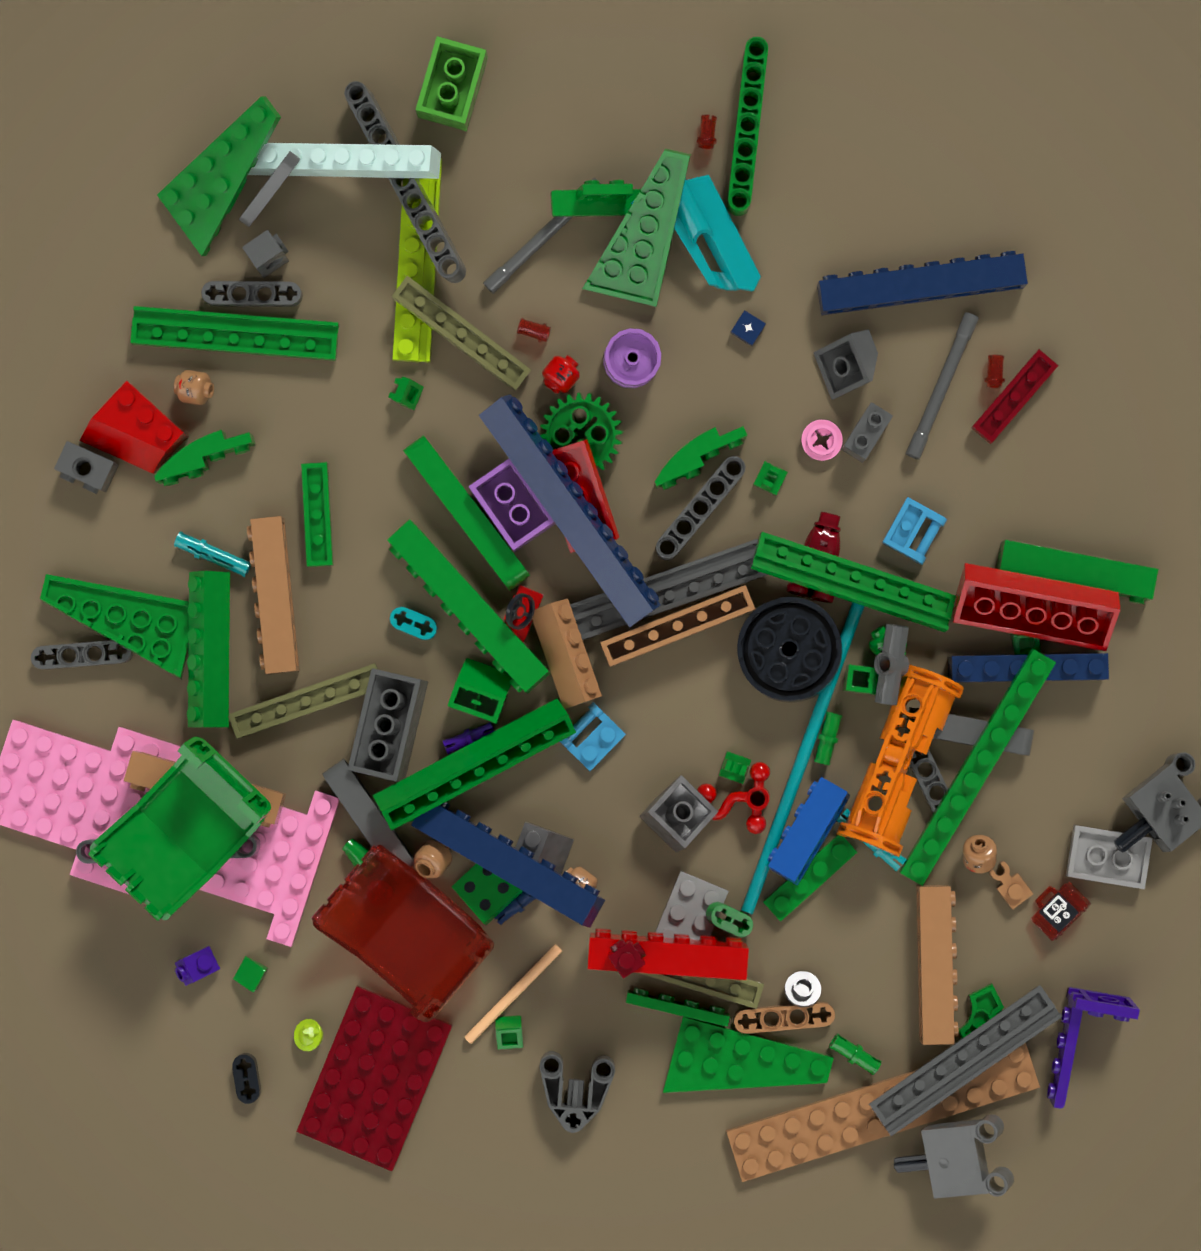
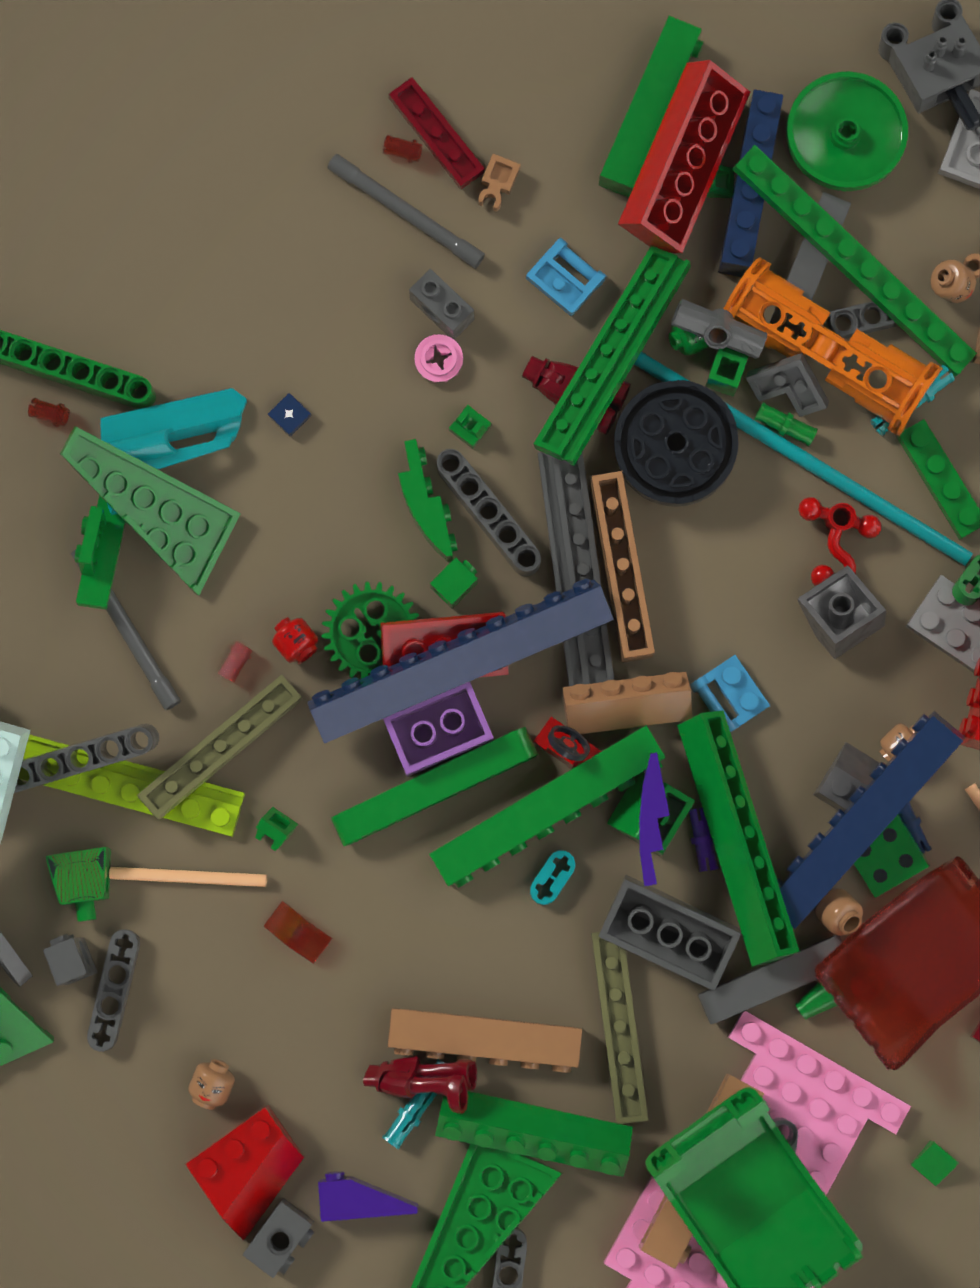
camera: 80 degrees left, 5 degrees down
(128, 520) = (355, 1199): none -> dark purple slope
(193, 458) = (297, 1103): green slope -> none
(196, 966) = (913, 1227): dark purple bracket -> none
(231, 541) = (409, 1077): none -> dark red piece
(234, 333) = (156, 1021): green plate -> none
(317, 514) = (398, 965): green plate -> none
(327, 429) = (297, 932): none -> clear red slope
(333, 247) = (81, 879): none -> green torso
(353, 332) = (186, 876): none -> light nougat piece
(481, 689) = (652, 806): none -> dark purple slope
(628, 373) = (295, 571): medium lavender wheel -> none
(636, 493) = (455, 582): none -> green brick
(734, 767) = (798, 538): green tile -> none
(808, 831) = (890, 466): blue brick -> none
(847, 363) = (357, 309): dark grey slope -> none
(866, 733) = (791, 377): none -> dark grey plate
(922, 284) = (283, 208): dark blue brick -> none
(987, 458) = (499, 178): none -> medium nougat plate
(1090, 739) = (846, 131): none -> green dish

